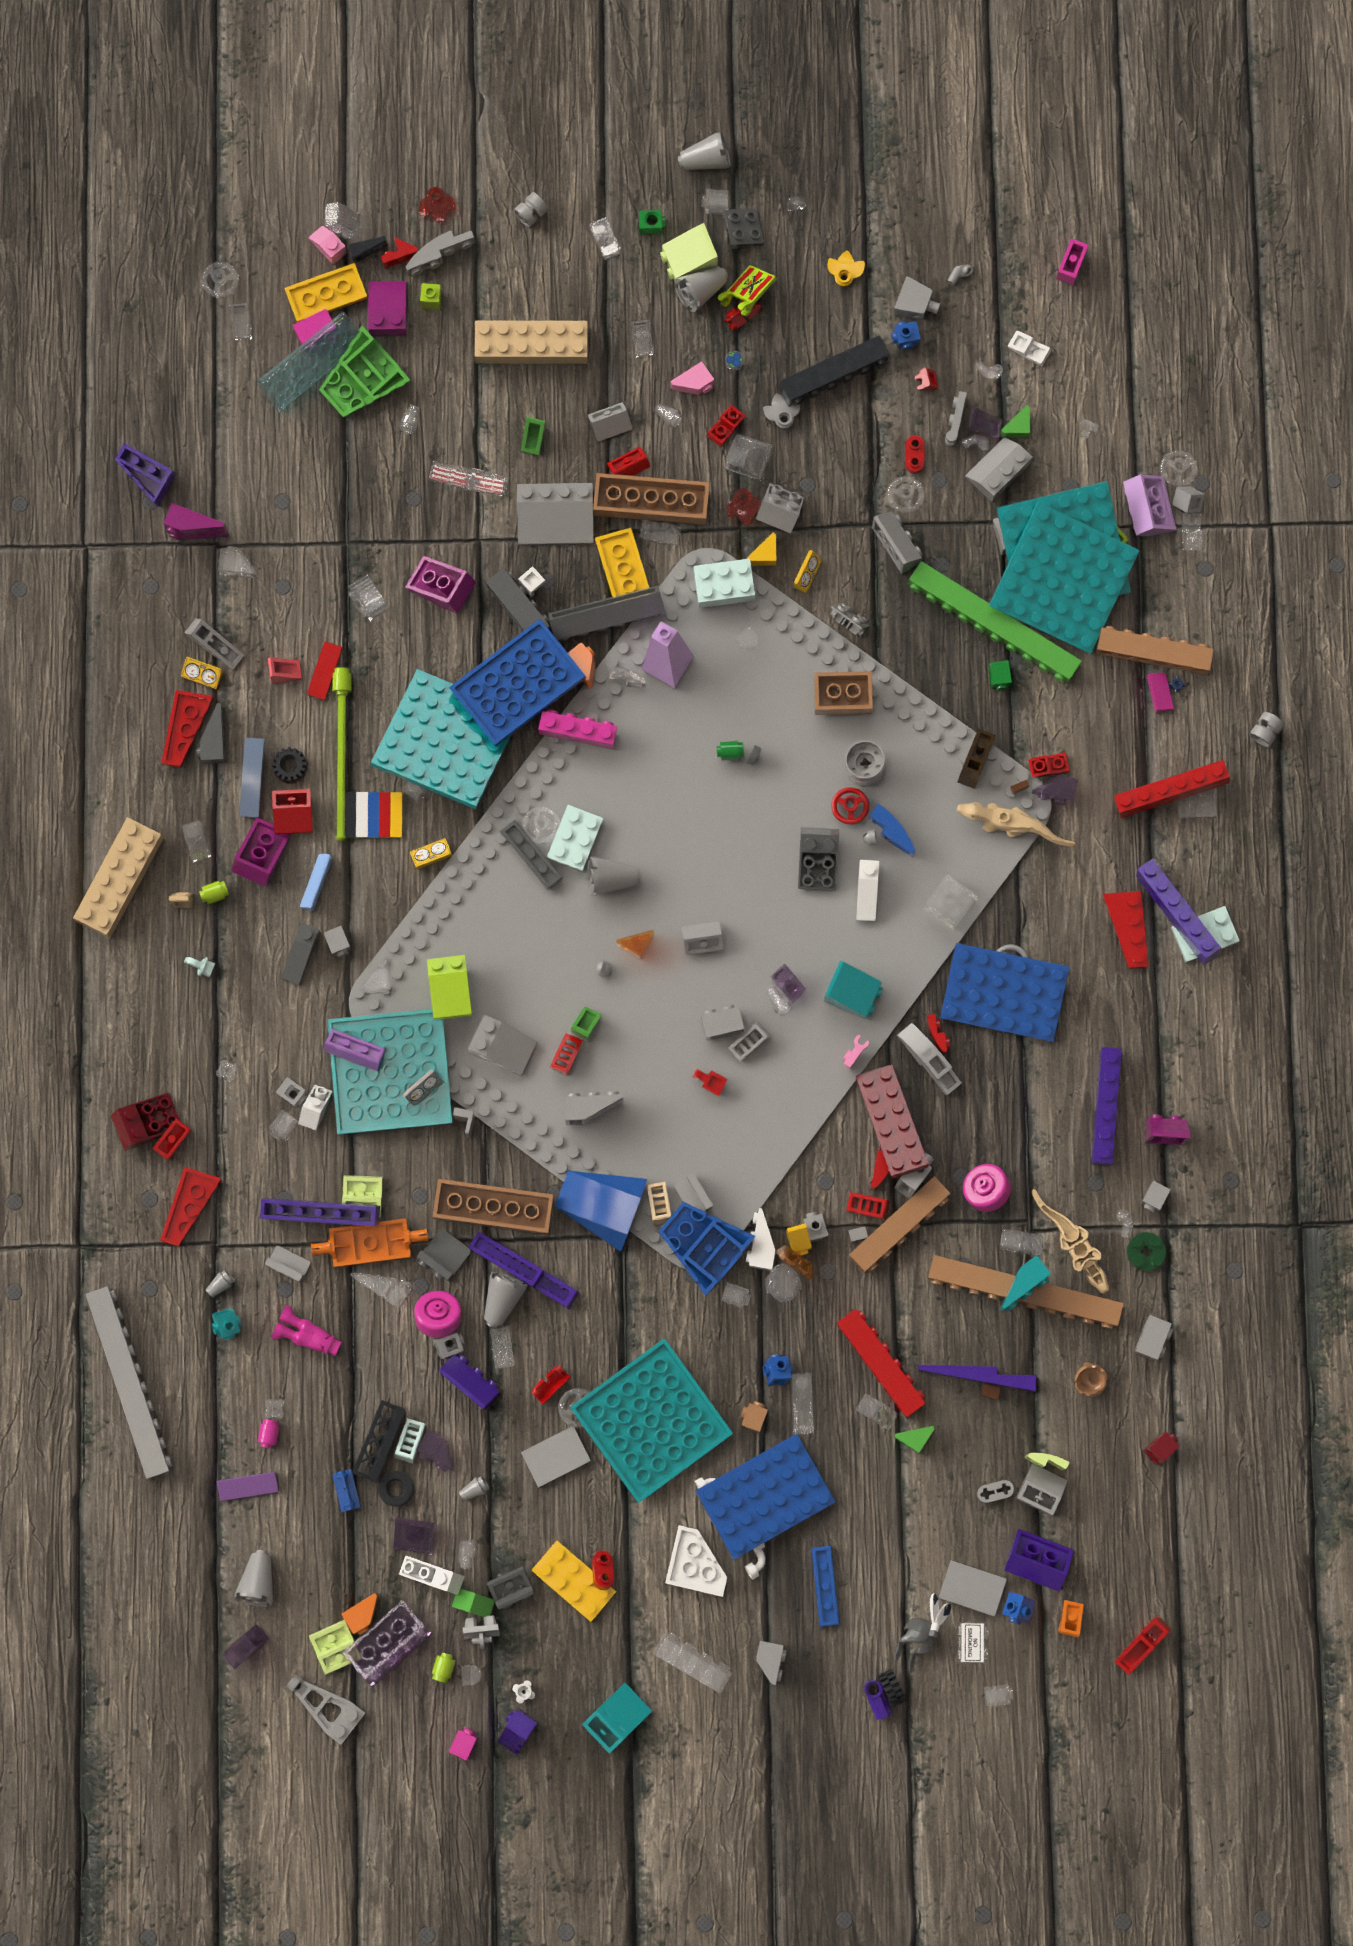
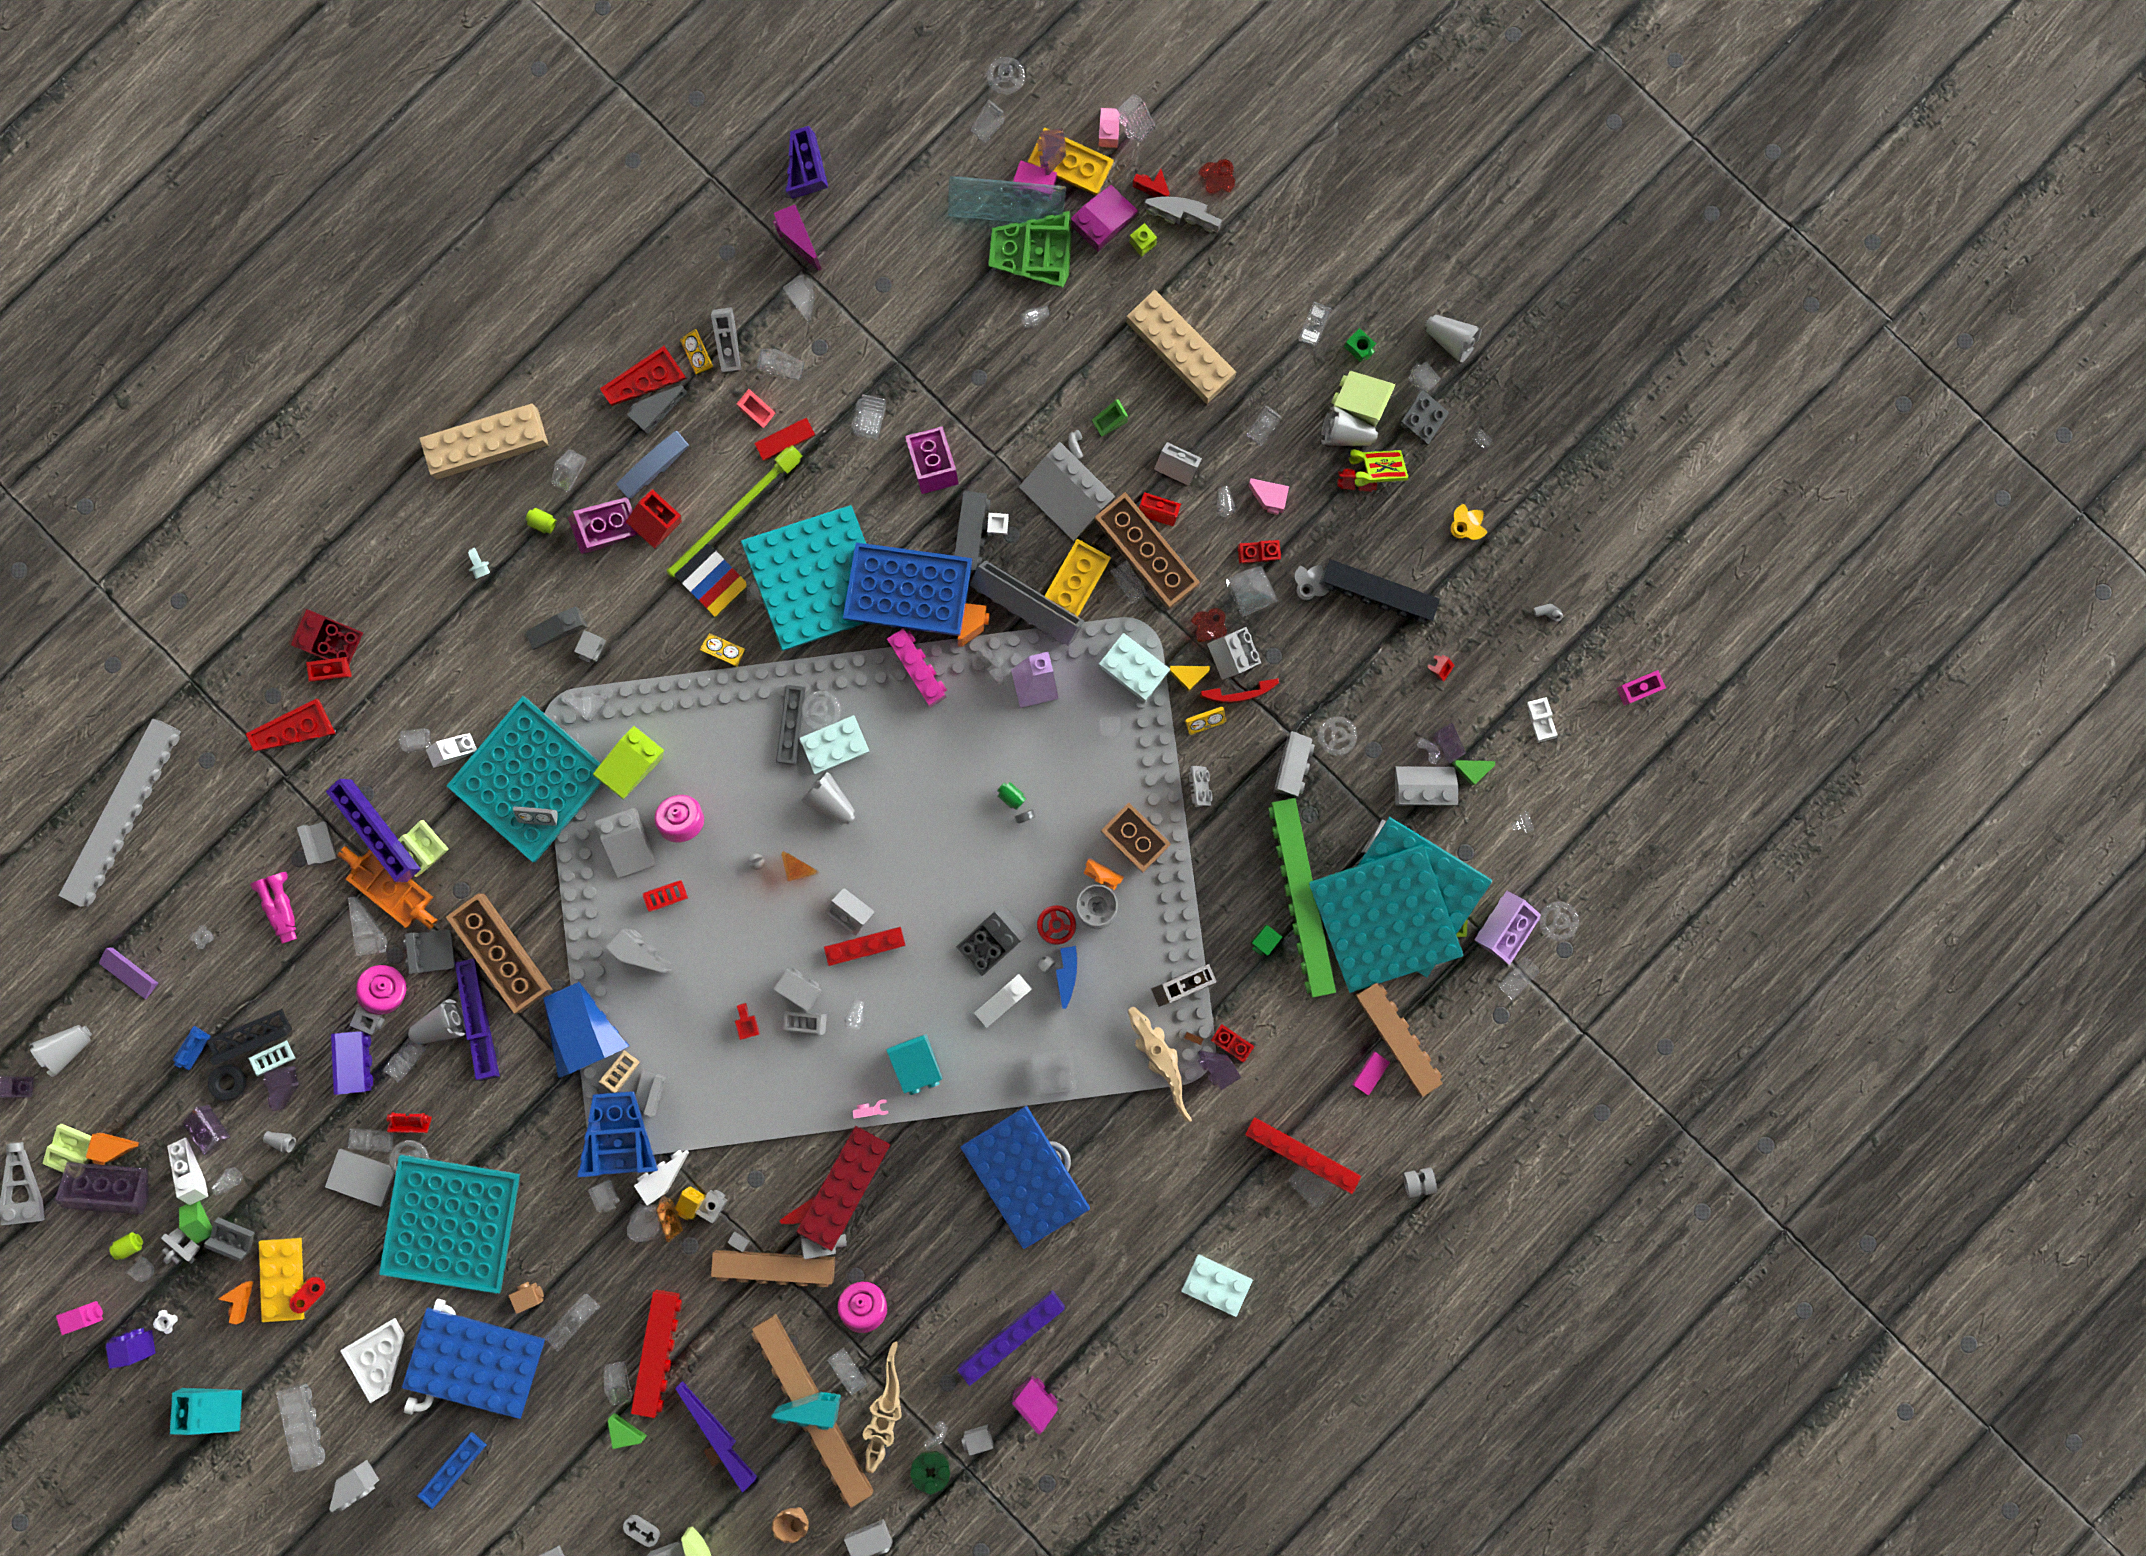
camera: 45 degrees right, 5 degrees up
(181, 900) = (511, 502): tan slope -> none
(220, 1283) = (257, 808): light grey cone -> none
(221, 1319) = (228, 841): teal brick -> none
(226, 1065) = (413, 656): clear plate -> none
(268, 1433) = (178, 951): dark pink brick -> none
(269, 623) = (780, 364): none -> clear slope
(289, 754) = (678, 477): black tyre -> none
(289, 1086) = (440, 717): light grey brick -> none
(306, 294) = (1052, 147): none -> slope
(316, 882) = (620, 587): light blue slope -> none
(354, 1050) = (518, 737): medium lavender slope -> none
(365, 248) = (1133, 157): black slope -> none
(465, 1116) = (546, 868): light grey panel -> none
(468, 479) = (1032, 402): clear slope -> none
(522, 990) = (679, 818): none -> wheel
(527, 479) = (1073, 444): none -> light grey arm
(531, 209) = (1282, 248): light grey wheel -> none
(536, 1424) = (370, 1140): none -> clear slope
(555, 1619) = (240, 1298): none -> orange slope
(585, 1023) = (701, 888): bright green slope -> none
(734, 360) = (1315, 509): tile -> none
(736, 950) = (864, 946): none -> red plate
(777, 1370) = (570, 1278): blue brick -> none
(788, 983) = (874, 1010): clear purple slope -> none
(797, 547) = (1215, 694): none -> red slope
(846, 739) = (1102, 874): none -> orange slope
(884, 1209) = (772, 1225): red slope -> none
(906, 335) = (1466, 616): blue brick -> none
(914, 453) = (1375, 712): red plate -> none
(915, 300) = (1494, 599): light grey torso -> none
(930, 1057) = (920, 1169): light grey slope -> none
(939, 1039) = (943, 1162): red slope -> none
(955, 419) = (1431, 717): light grey plate -> none
(991, 372) = (1493, 708): clear arm -> none
(1128, 921) = (1169, 1219): red wing -> none
(1176, 684) = (1389, 1080): dark blue piece -> none
(1178, 912) = (1211, 1251): dark purple brick -> none
(1188, 499) = (1542, 952): light grey panel -> none

